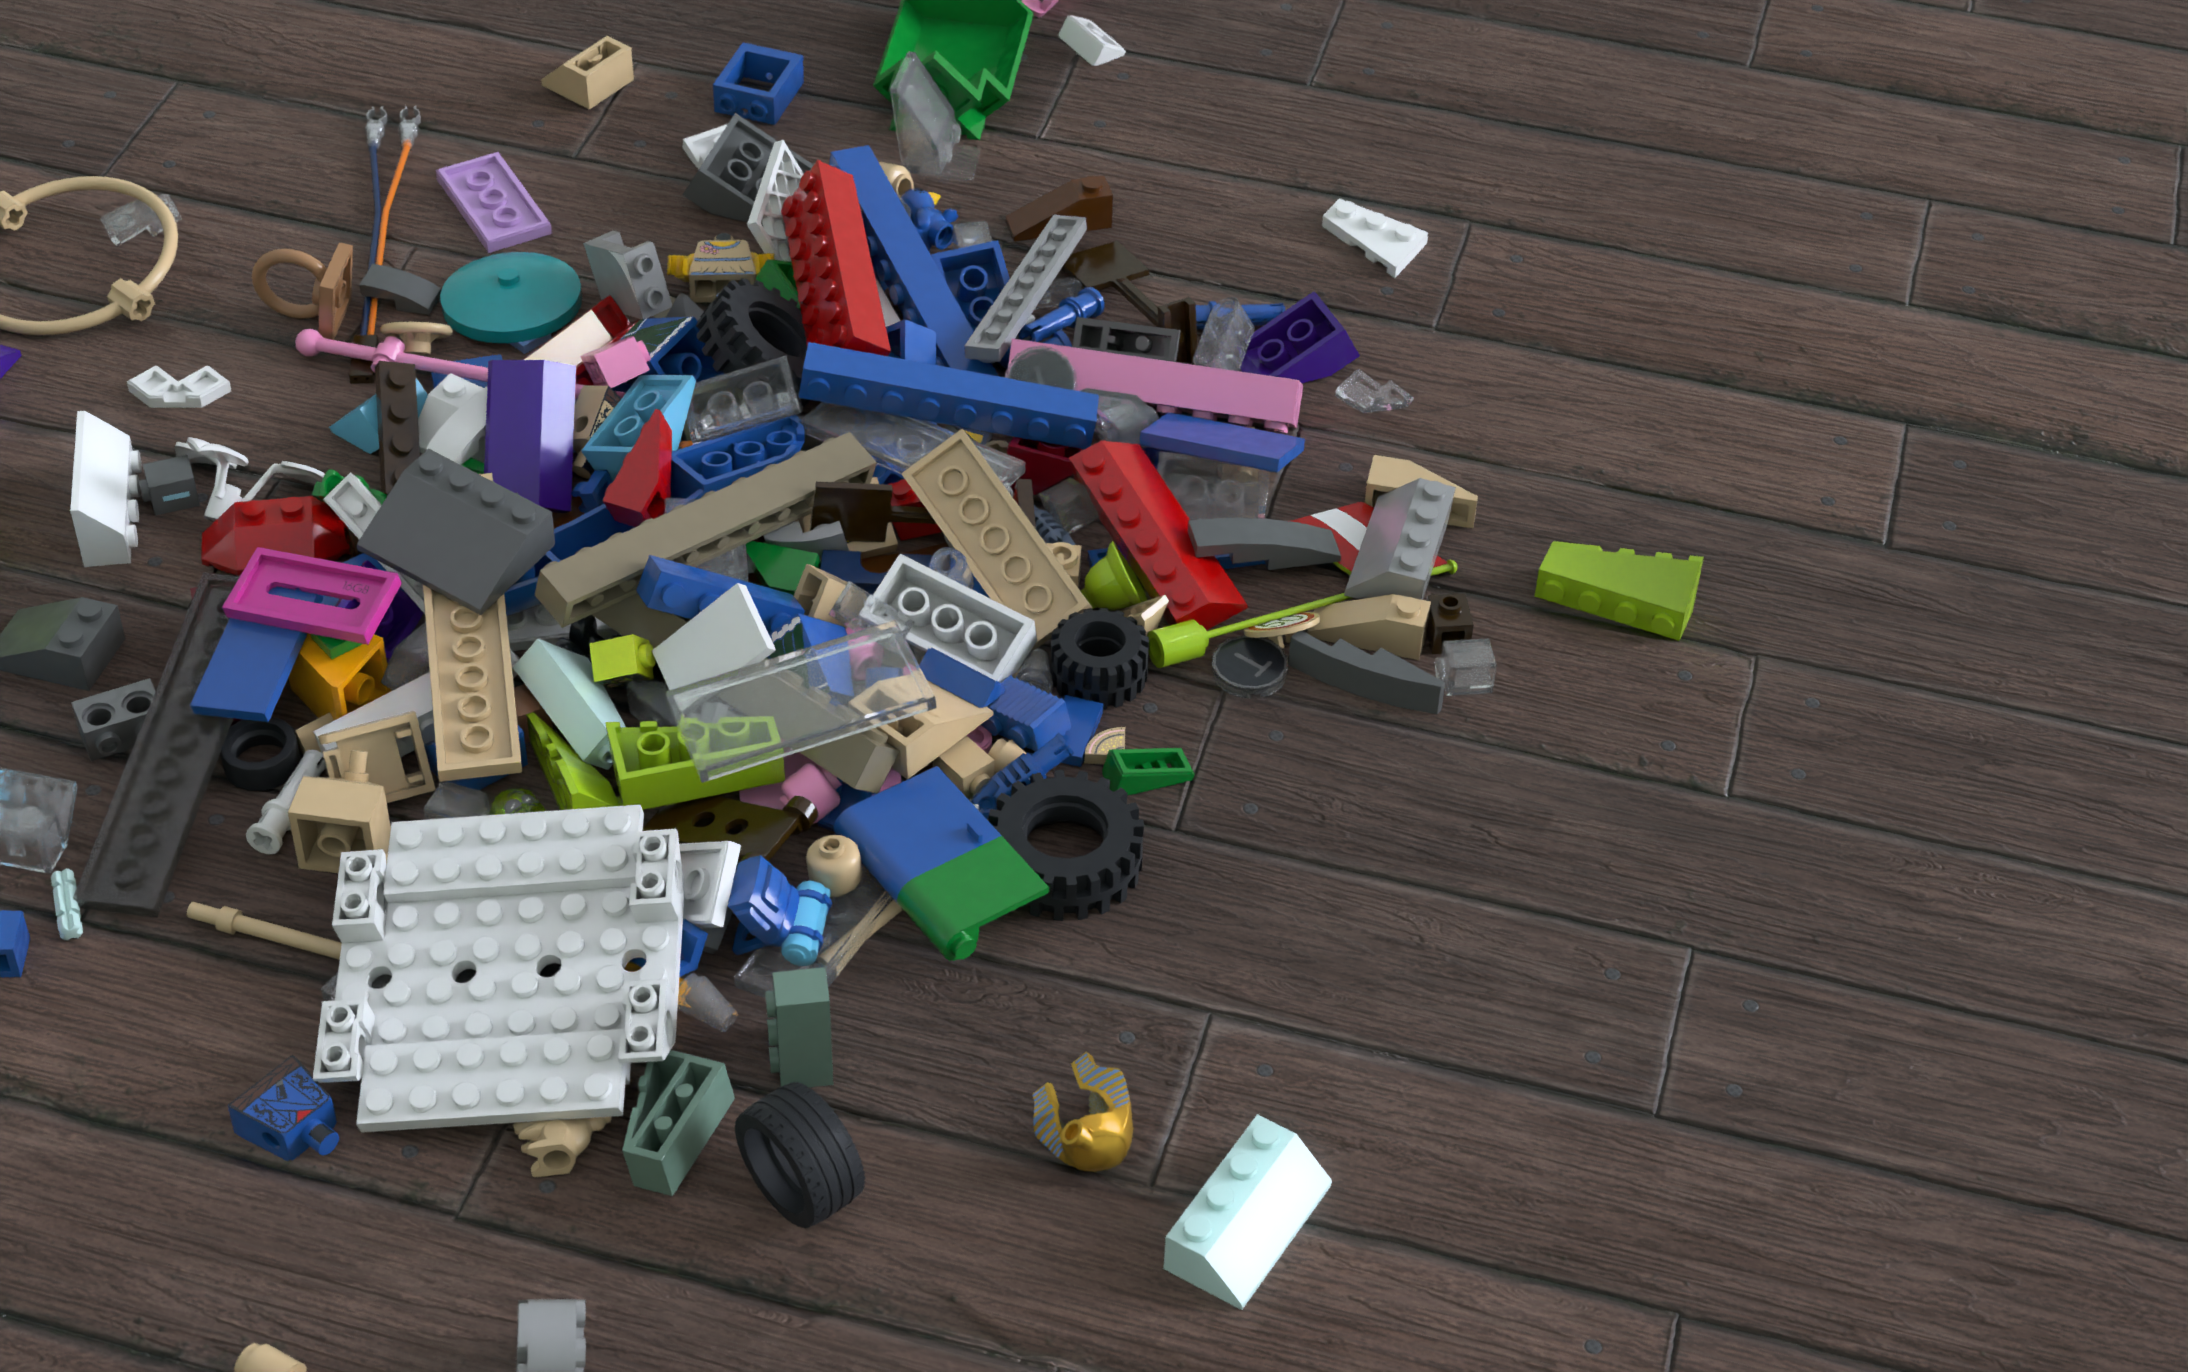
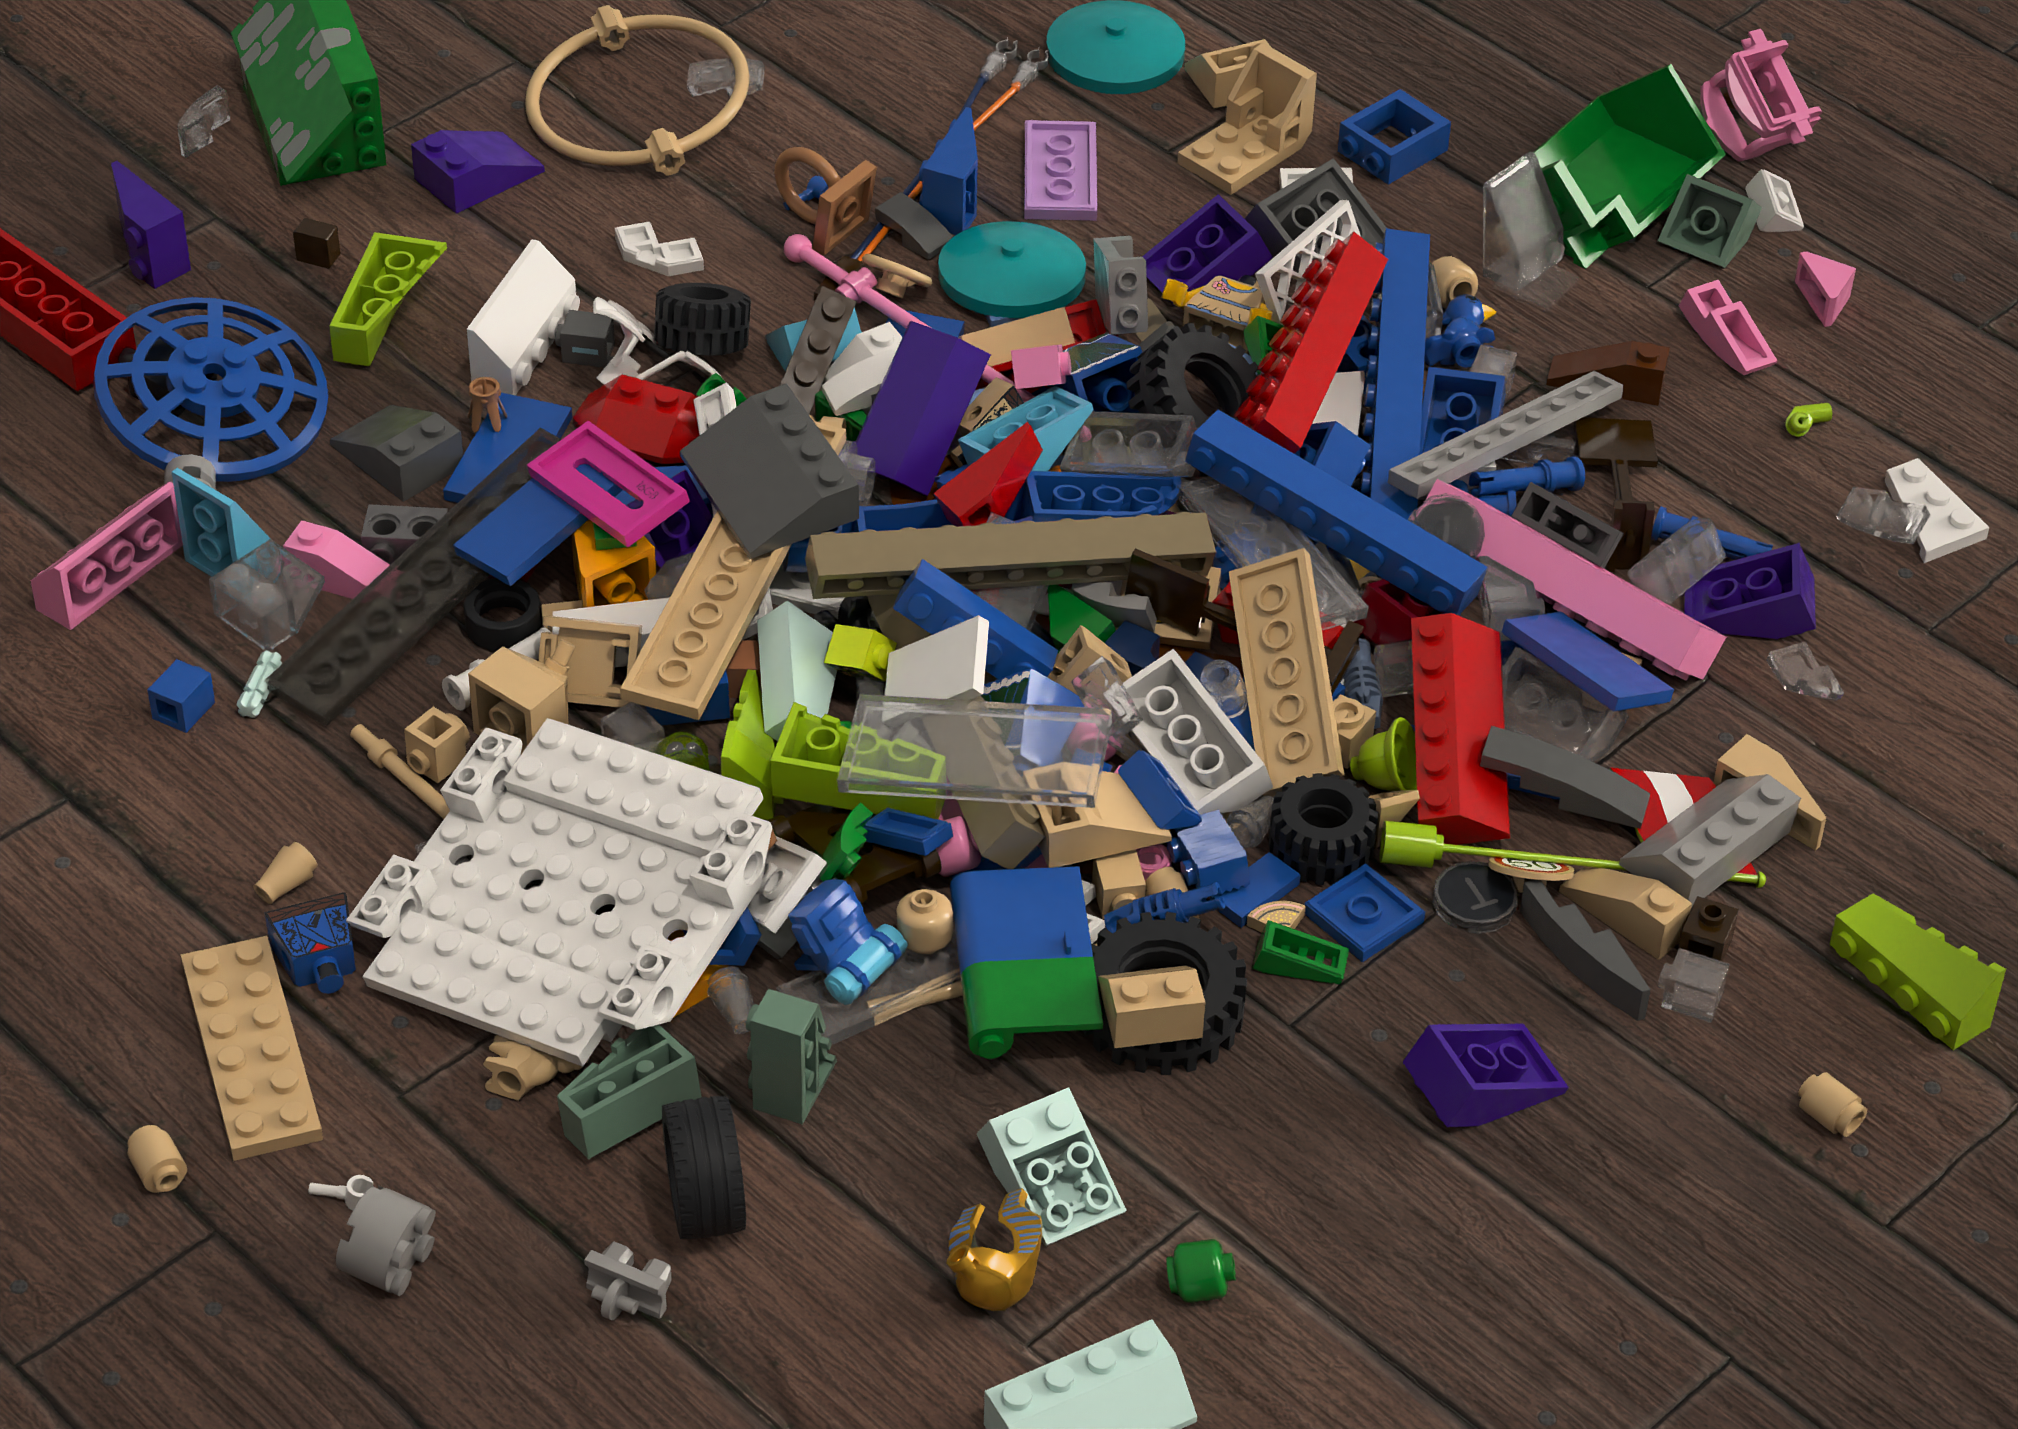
camera: 30 degrees right, 0 degrees up
(91, 765) = (341, 561): none -> bright pink slope
(118, 564) = (485, 393): none -> medium nougat piece
(155, 606) = (491, 448): none -> blue tile
(214, 1061) = (287, 871): none -> tan cone
(274, 428) = (702, 318): none -> black tyre
(283, 890) = (436, 744): none -> tan brick
(287, 1234) = (251, 1048): none -> tan plate
(290, 286) = (814, 189): none -> blue hand
(415, 231) = (951, 176): none -> blue slope
(469, 85) = (1115, 47): none -> teal dish
(478, 1323) = (351, 1193): none -> white hand
(644, 106) = (1264, 124): none -> tan bracket
(675, 219) = (1207, 246): none -> dark purple slope
(730, 822) = (843, 848): none -> green slope
(772, 795) = (907, 831): none -> blue tile
(785, 1290) = (626, 1287): none -> light grey hips
(1056, 69) = (1709, 221): none -> sand green slope
(1069, 1015) = (1055, 1162): none -> light aqua slope
(1082, 853) = (1153, 1006): none -> tan slope
(1127, 148) = (1726, 328): none -> bright pink slope
(1171, 714) = (1364, 912): none -> blue tile
(1175, 89) = (1824, 285): none -> bright pink slope
(1230, 197) = (1804, 416): none -> lime arm
(1255, 1059) = (1200, 1270): none -> green head
(1339, 252) = (1880, 516): none -> clear slope
(1356, 804) = (1481, 1071): none -> dark purple slope
(1630, 717) = (1832, 1104): none -> tan brick

